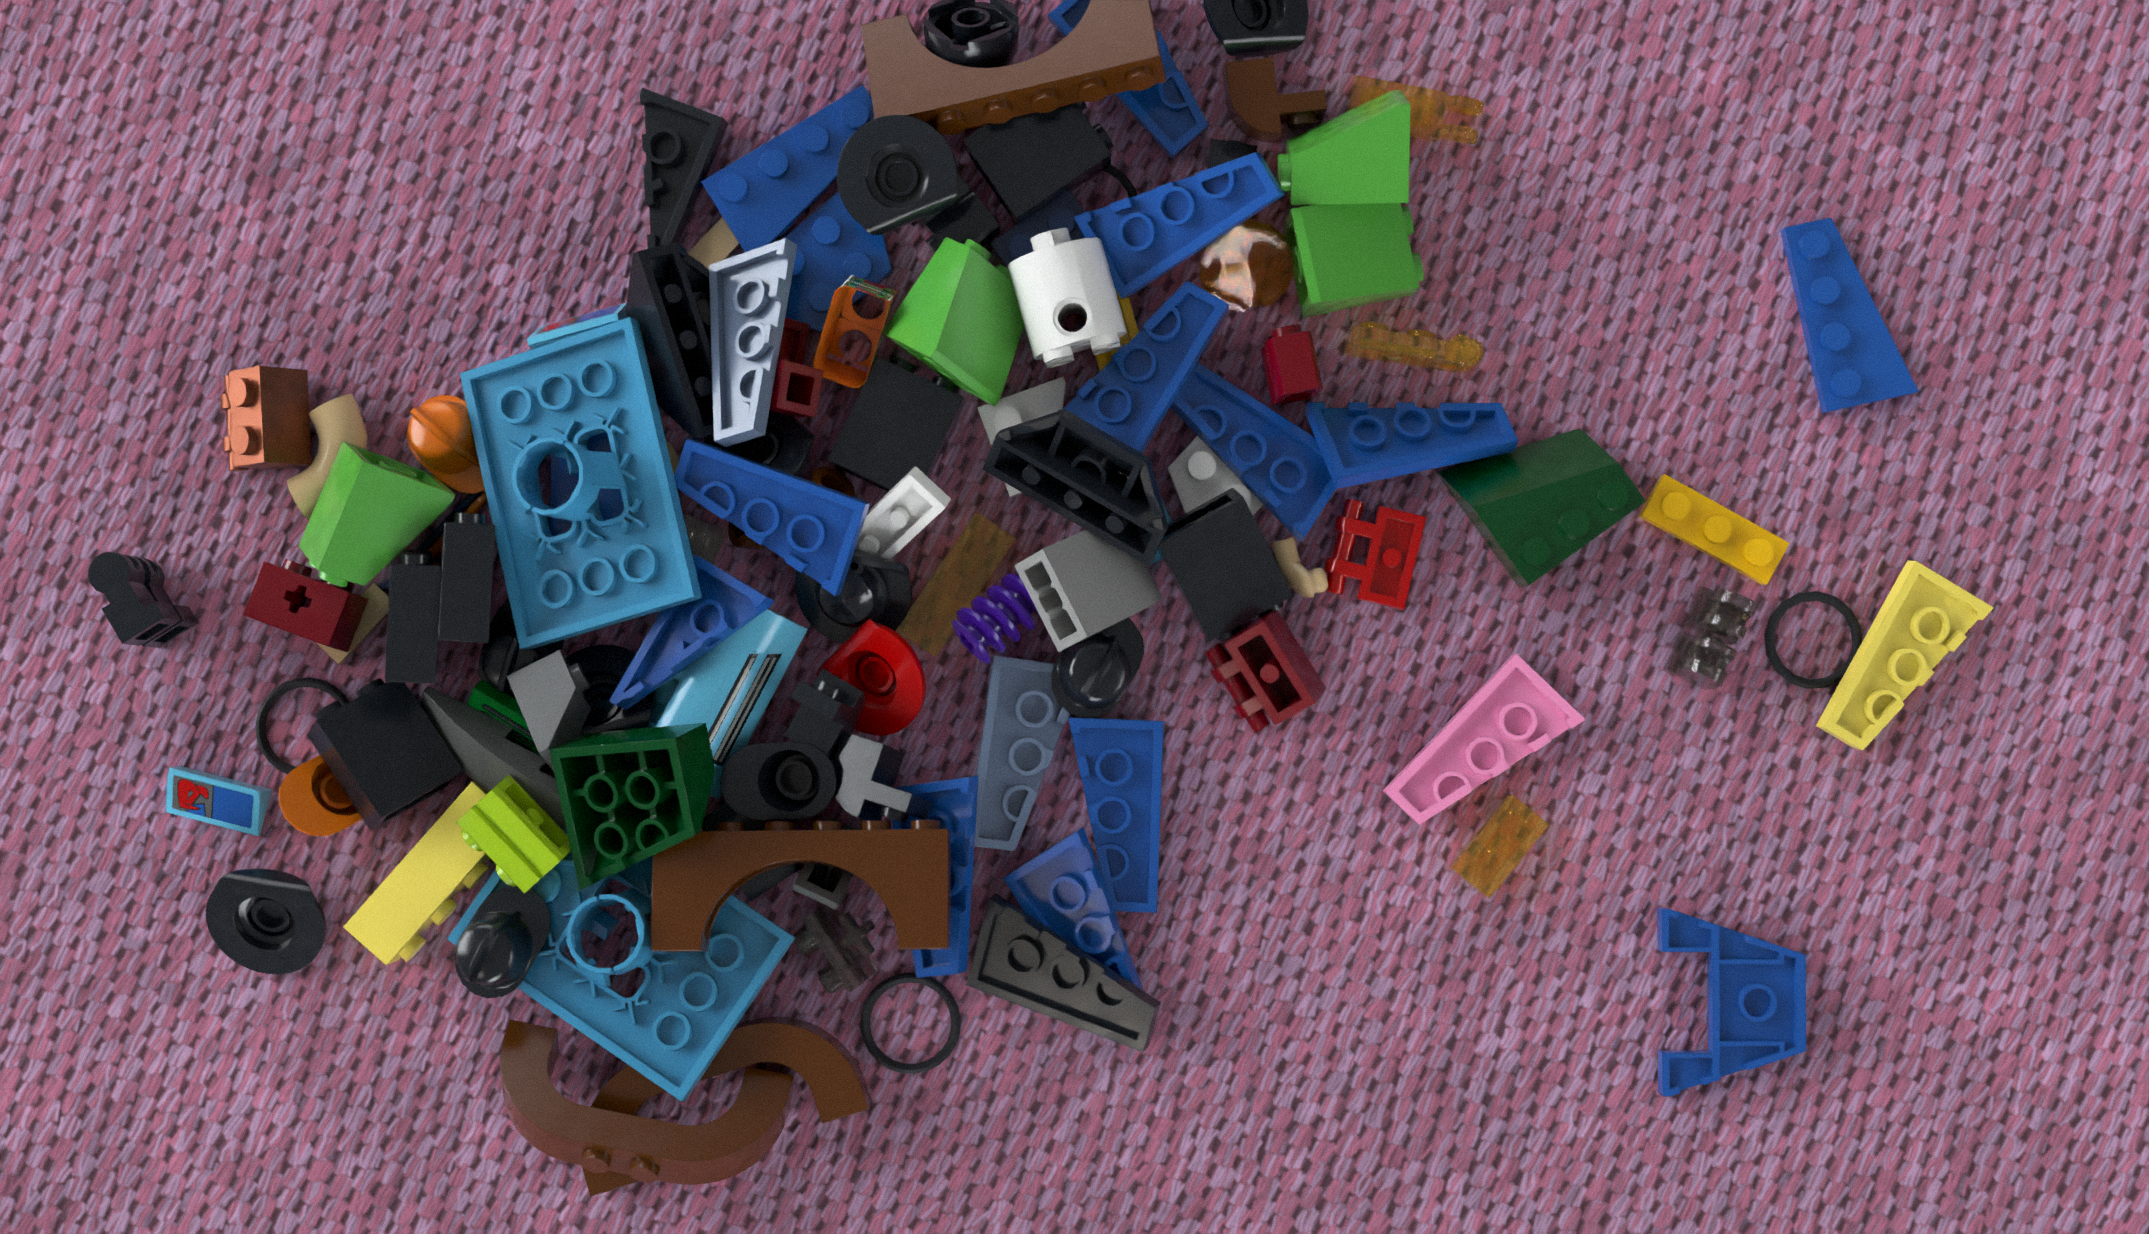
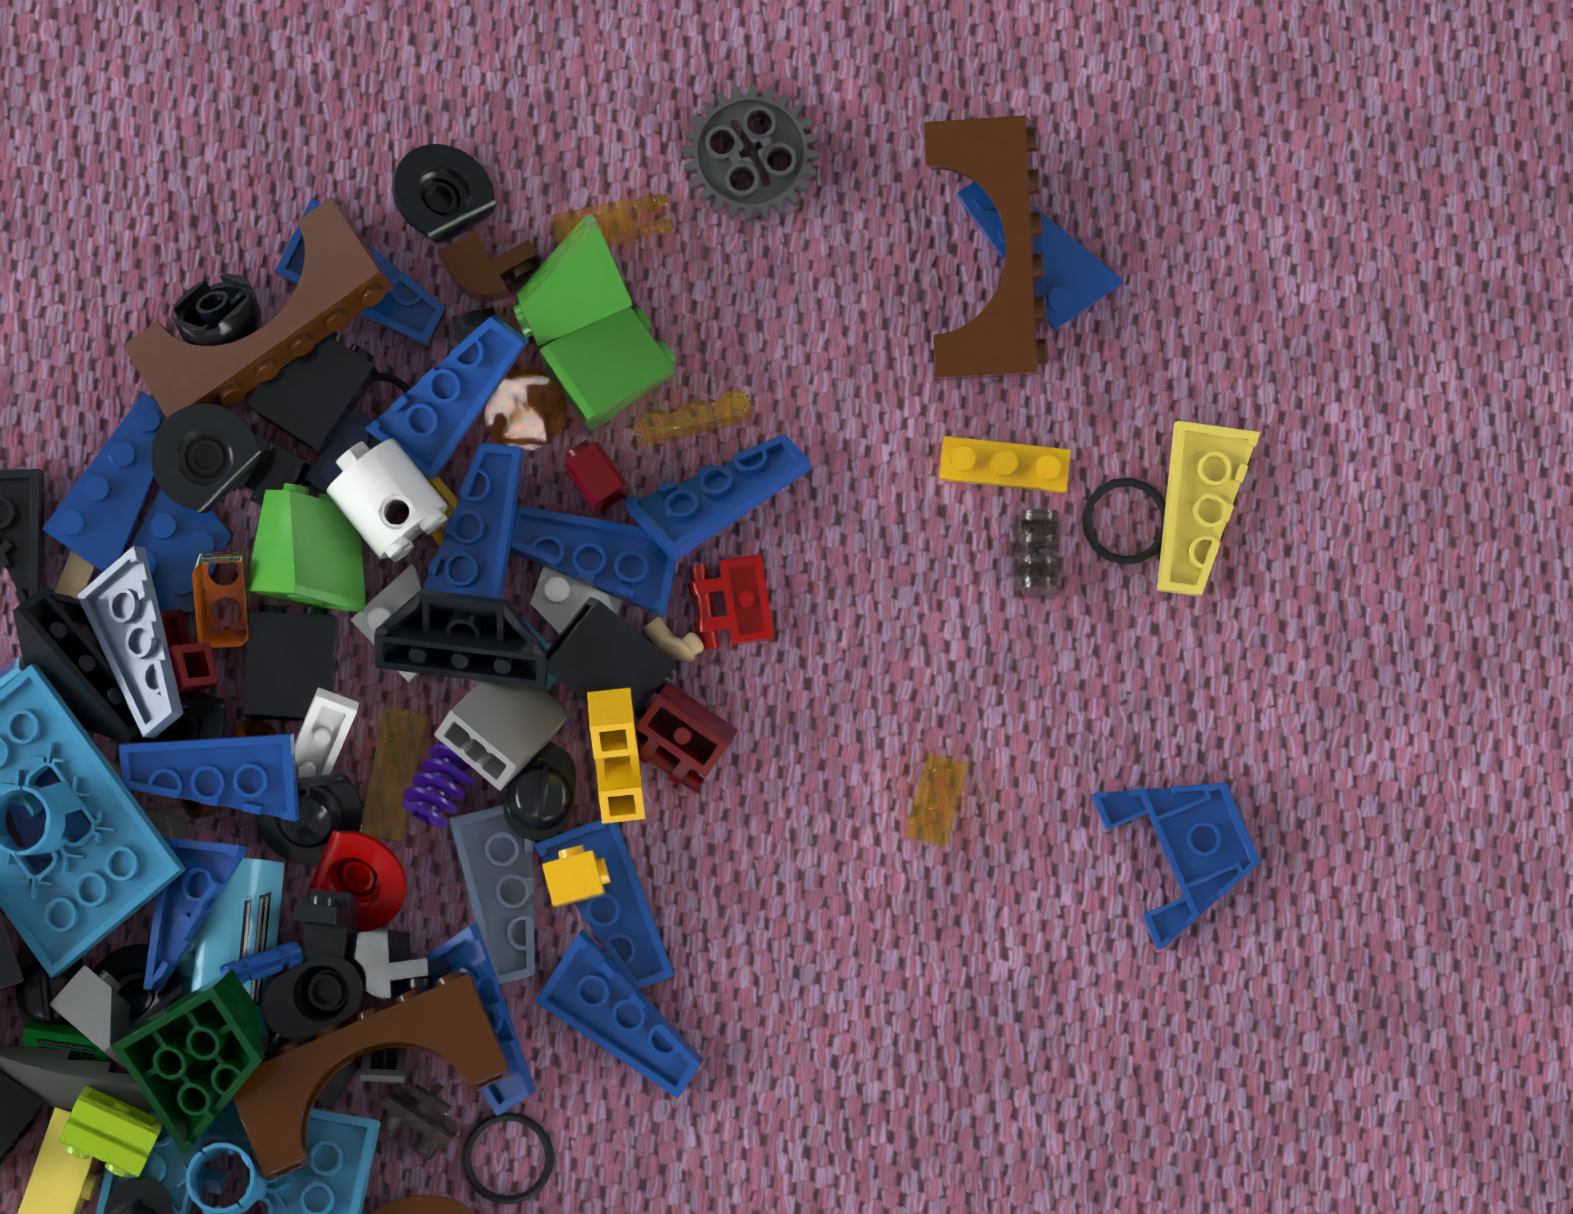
camera: 25 degrees left, 5 degrees down
(743, 726) = (265, 962): none -> blue axle
(1051, 976) = (609, 1064): black wing -> none
(1099, 771) = (575, 876): none -> yellow brick
(1193, 664) = (616, 755): none -> yellow arch
(1492, 731) = (890, 710): bright pink wing -> none
(1542, 500) = (851, 500): dark green wedge -> none
(1631, 96) = (784, 137): none -> dark grey gear
(1848, 209) = (1007, 331): none -> reddish brown arch

